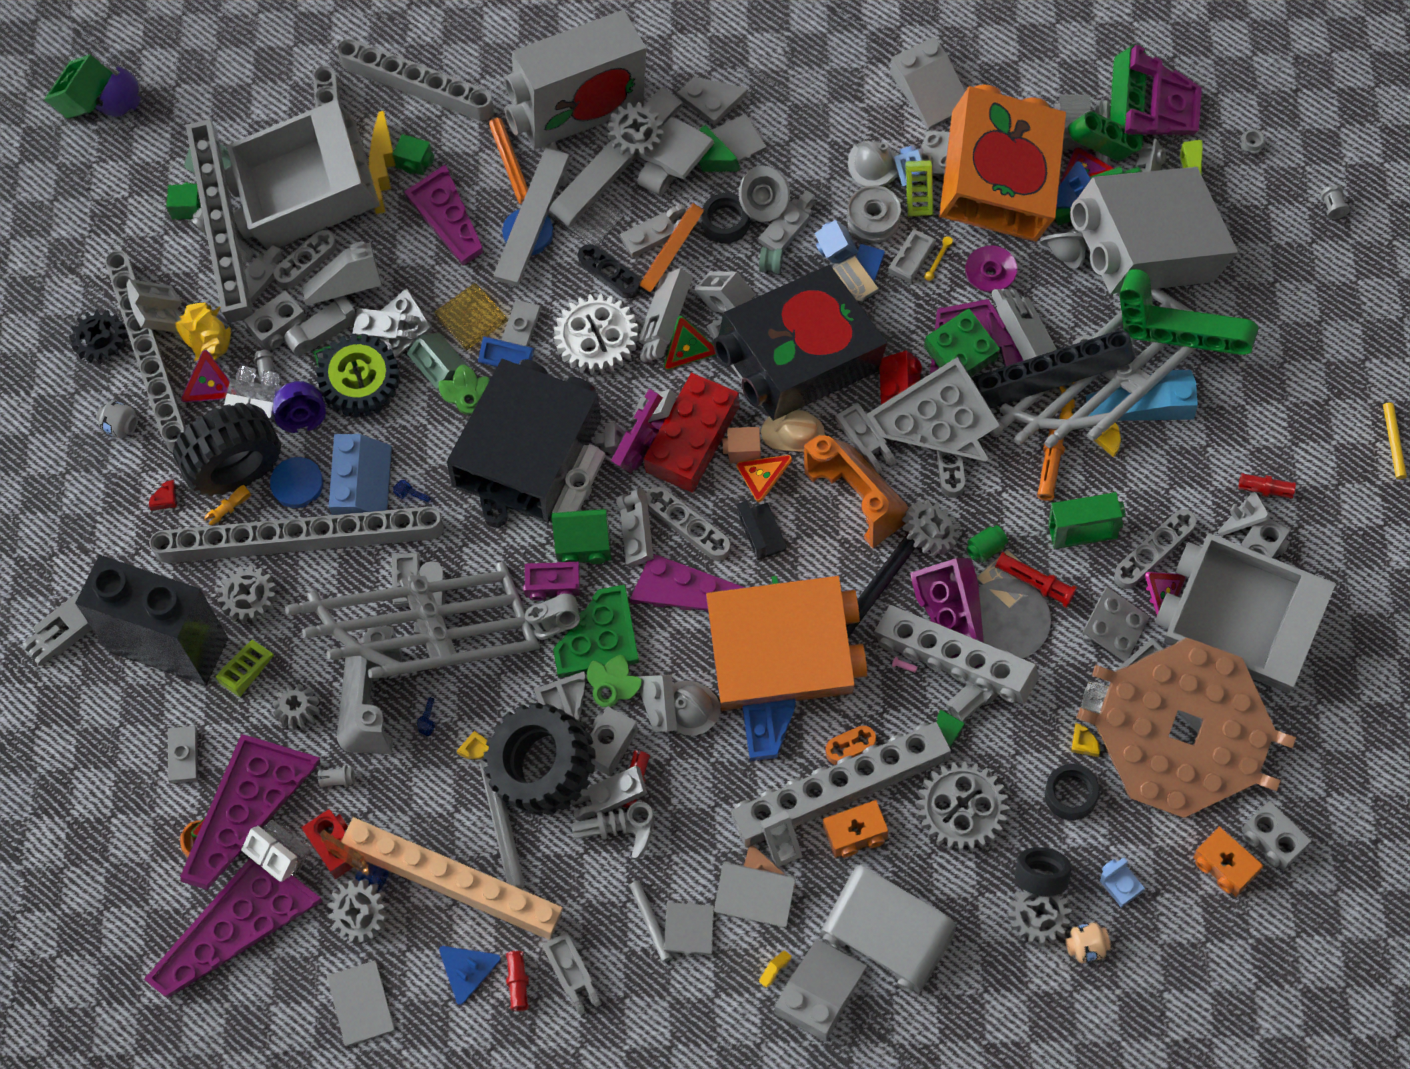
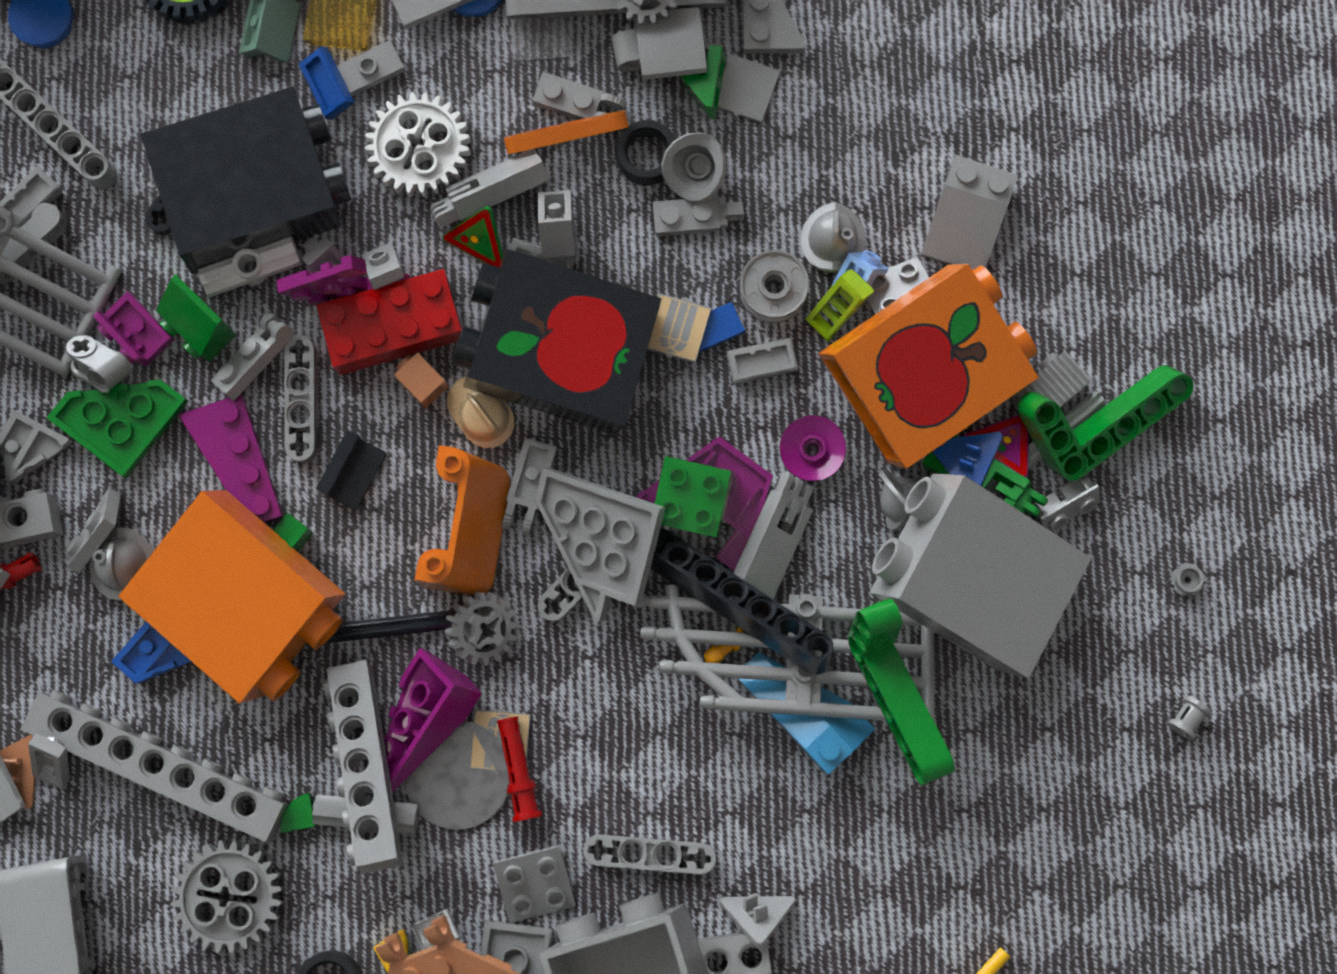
camera: 45 degrees right, 15 degrees up
(359, 474) = (88, 67): medium blue slope -> none
(403, 487) = (116, 115): clear blue hand -> none
(463, 386) = (258, 73): bright green plate -> none
(613, 281) = (506, 105): black beam -> none
(614, 677) = (84, 471): bright green plate -> none
(763, 474) = (404, 424): piece -> none
(771, 260) = (637, 234): sand green wheel -> none
(835, 242) = (709, 278): brick -> none
(848, 739) = (202, 747): orange beam -> none
(866, 819) = (141, 818): orange brick -> none
(896, 662) = (324, 710): bright pink piece -> none
(898, 373) = (619, 462): red bracket -> none
(946, 242) = (810, 381): yellow hinge -> none
(986, 543) = (514, 692): green brick -> none
(1050, 469) = (645, 686): orange pin -> none
(1085, 520) = (611, 769): green window -> none
(1110, 440) = (729, 720): yellow tile -> none
(1163, 583) = (604, 899): piece -> none
(1174, 100) = (1160, 466): magenta wing -> none
(1191, 154) = (1109, 539): lime slope -> none
(1266, 485) = (809, 907): red pin -> none

